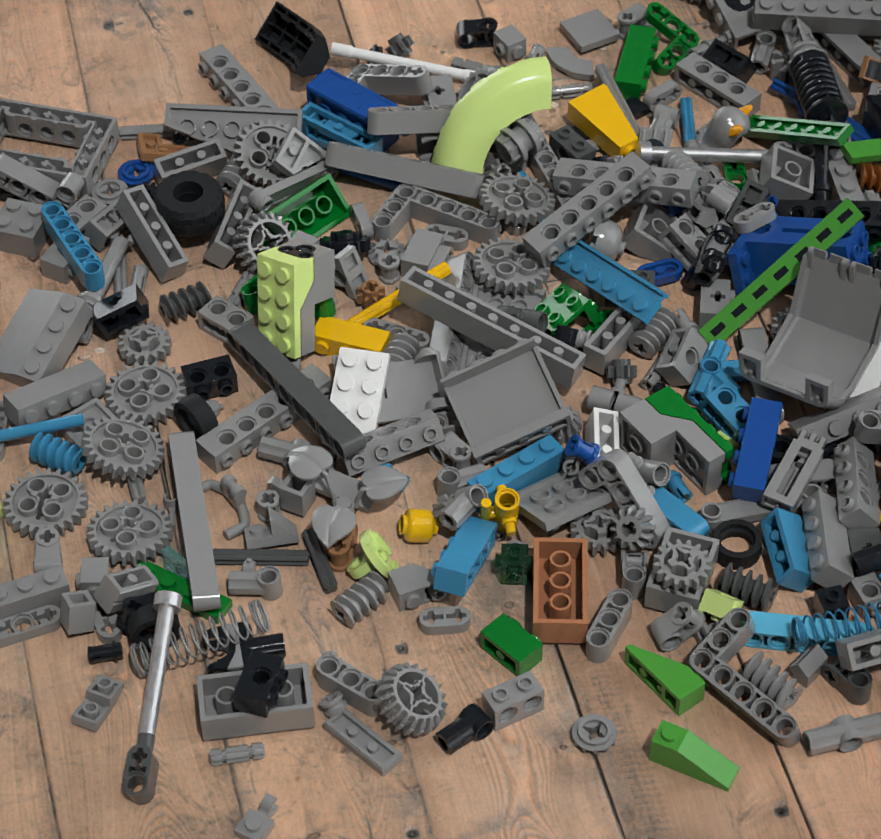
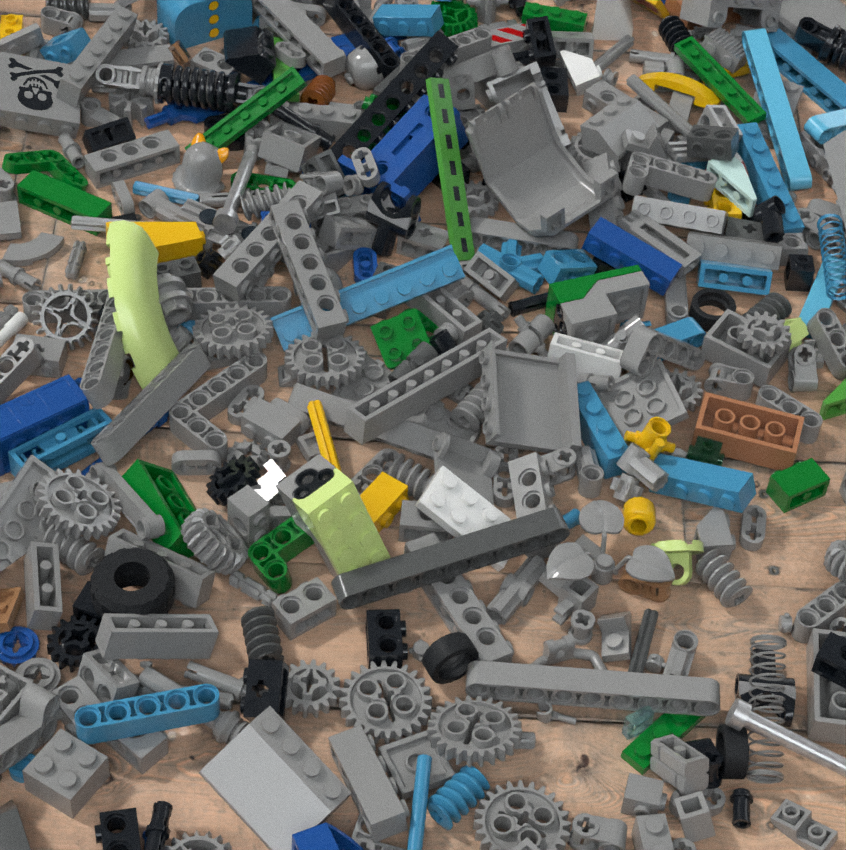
camera: 80 degrees left, 0 degrees up
(129, 532) = (607, 743): light grey gear -> none
(297, 153) = (90, 473): light grey wing -> none
(320, 561) = (660, 603): dark grey axle -> none
(581, 449) = (597, 368): blue bush -> none
(642, 526) = (703, 357): light grey gear -> none

